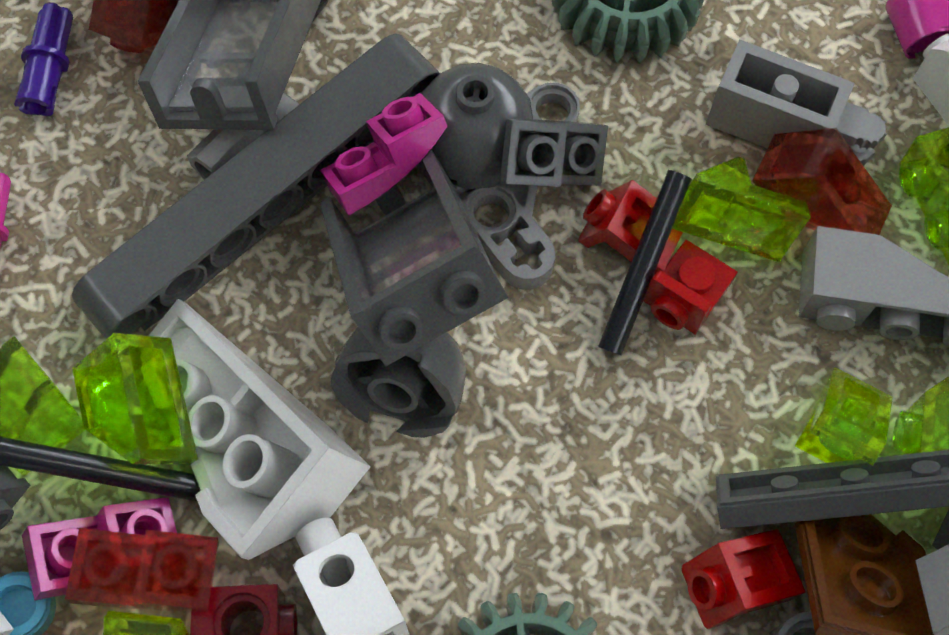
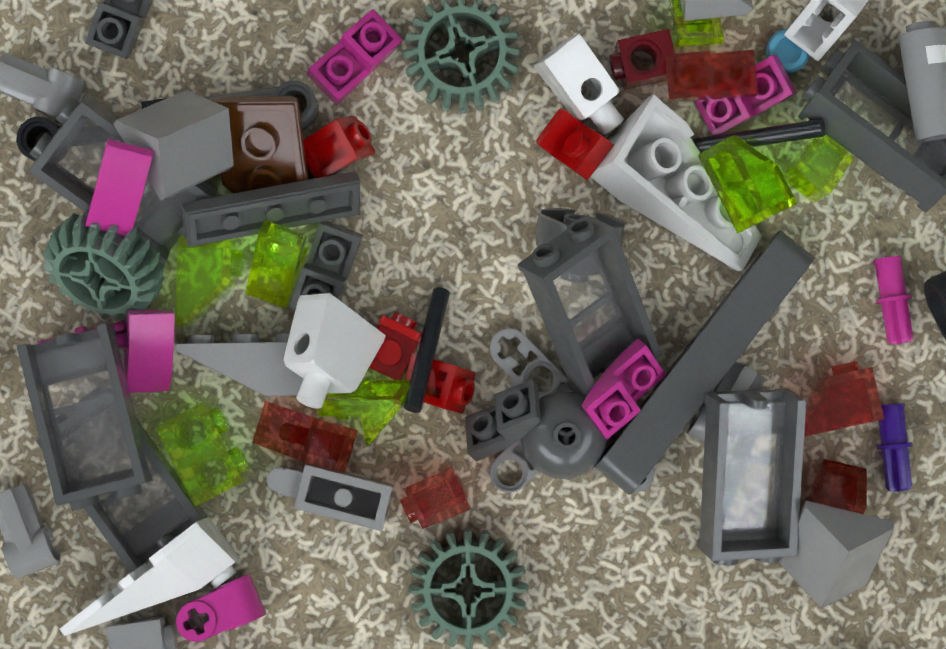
camera: 170 degrees right, 20 degrees up
(92, 115) = (843, 400): none -> clear red slope
(375, 505) = (574, 143): none -> red bracket
(652, 83) = (435, 498): none -> clear red slope
(773, 405) = (328, 262): none -> dark grey slope
(789, 271) = (329, 347): none -> white torso

